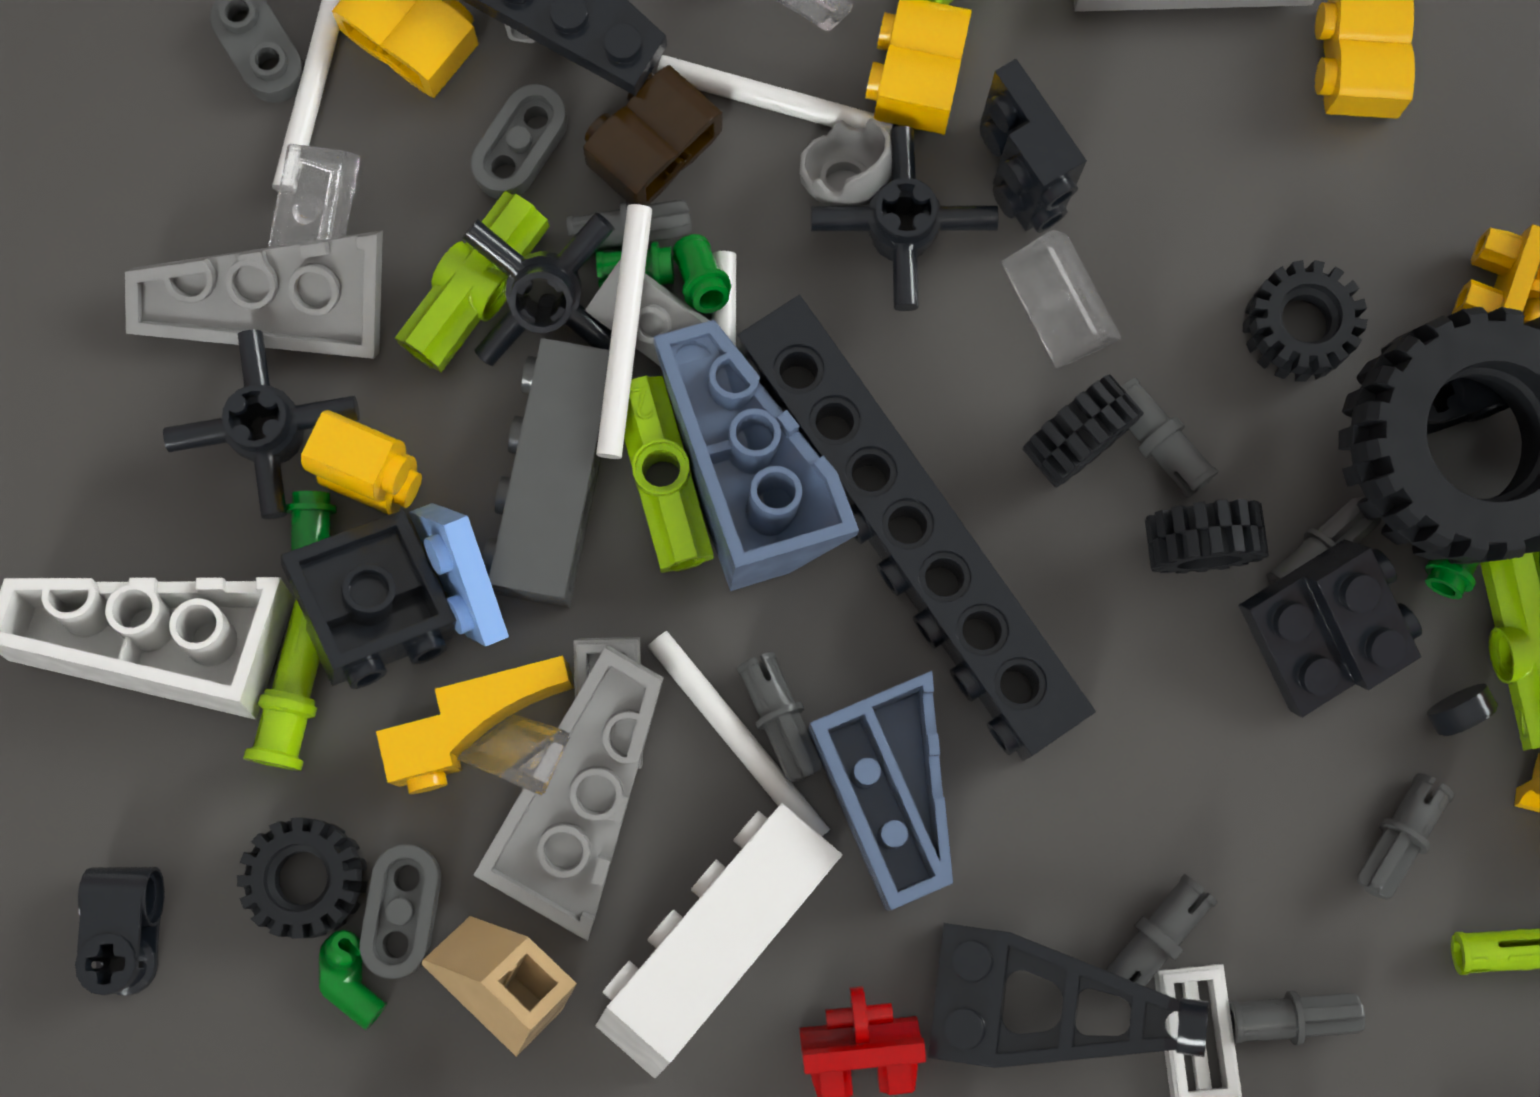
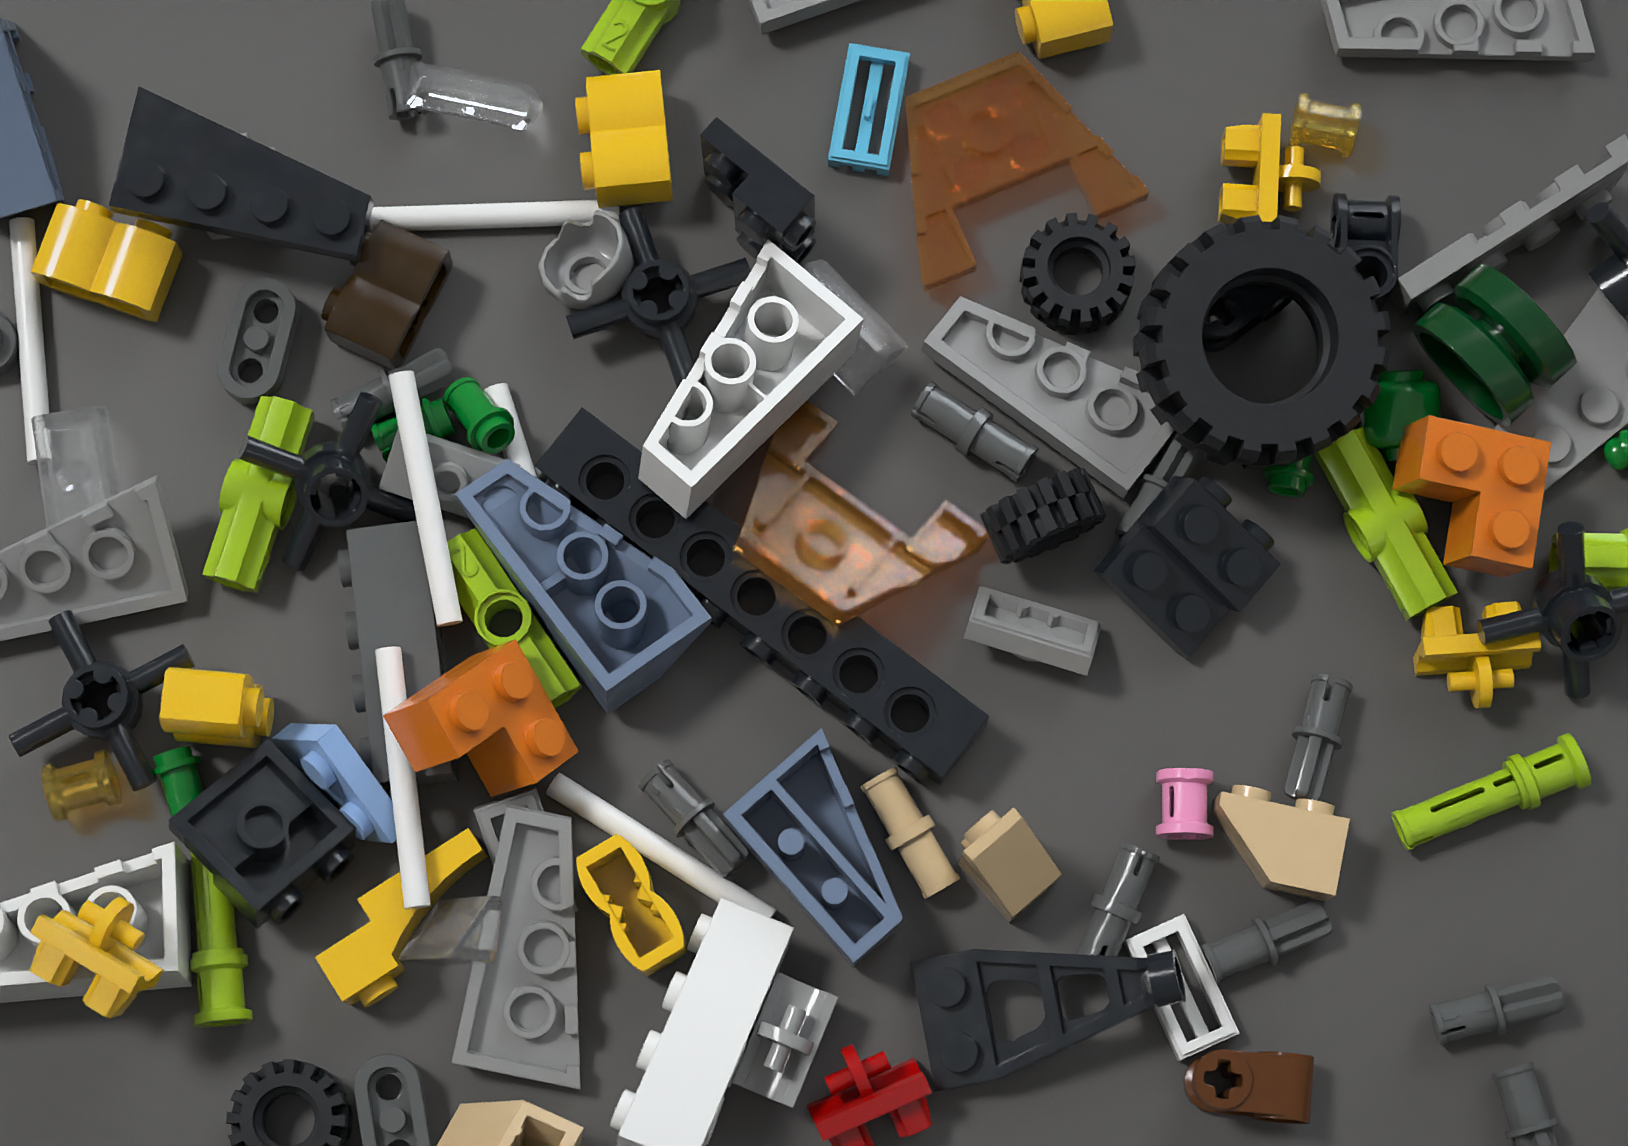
camera: 15 degrees left, 0 degrees up
(171, 653) = (71, 942): none -> yellow hips
(217, 497) = (81, 785): none -> clear yellow bush
(515, 588) = (403, 786): none -> white bar
(622, 554) = (493, 714): none -> orange brick
(690, 762) = (624, 892): none -> yellow brick
(799, 961) = (785, 1040): none -> light grey hips
(968, 315) = (750, 376): none -> white wedge
(982, 799) = (910, 832): none -> tan pin
(994, 496) = (829, 542): none -> clear orange wing
(1069, 859) = (1007, 862): none -> tan slope
(1082, 430) = (895, 452): black tyre -> none
(1130, 151) = (860, 158): none -> medium azure tile
(1160, 643) = (1033, 630): none -> light grey plate
(1250, 425) = (1053, 391): none -> light grey wing
(1256, 858) = (1184, 804): none -> bright pink bush
(1262, 168) = (988, 136): none -> clear orange wing
(1342, 932) = (1285, 845): none -> tan slope
(1463, 710) = (1336, 601): black tile -> none

